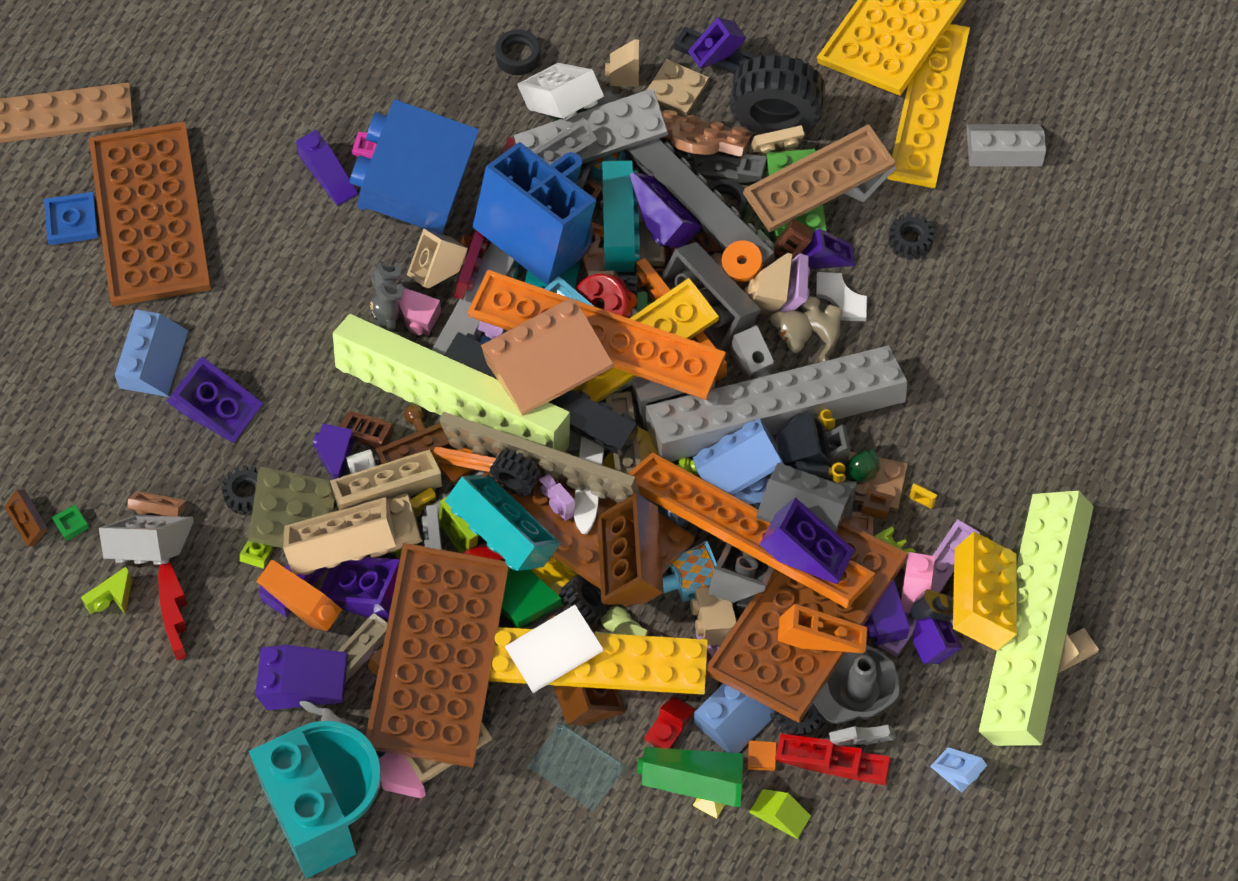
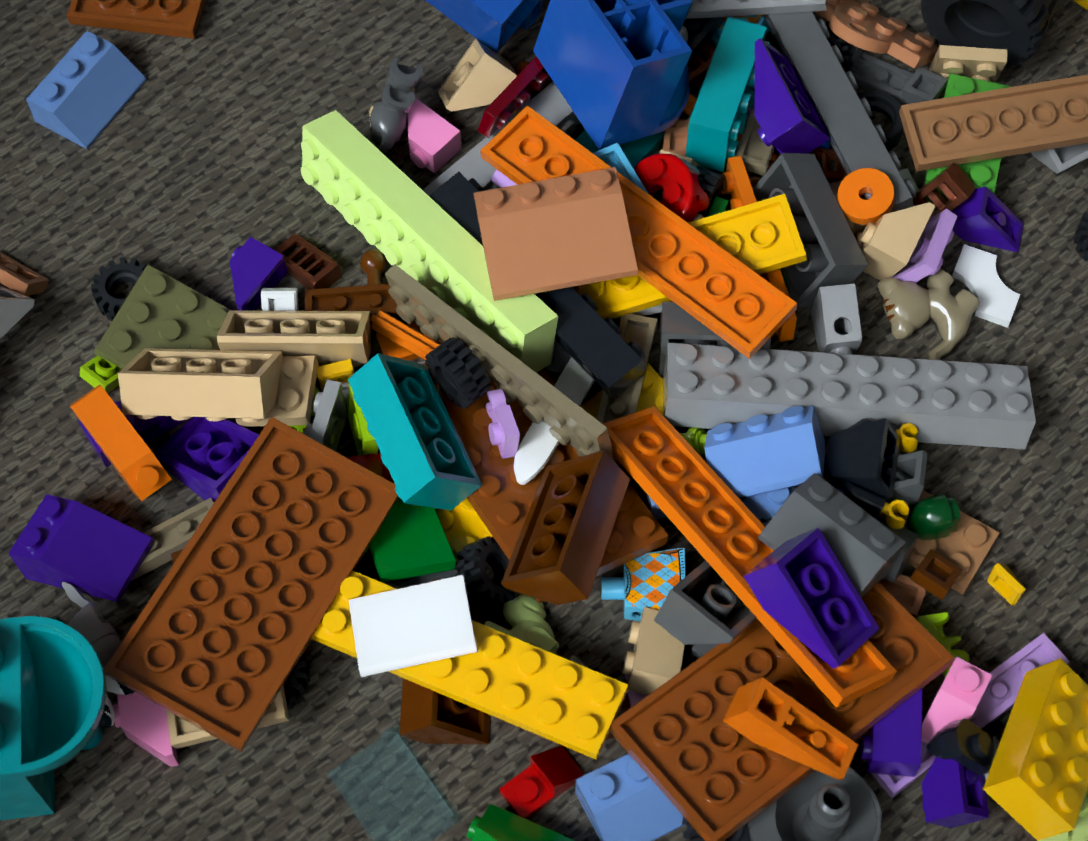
camera: 20 degrees right, 0 degrees up
(214, 400) = (135, 168): dark purple slope -> none

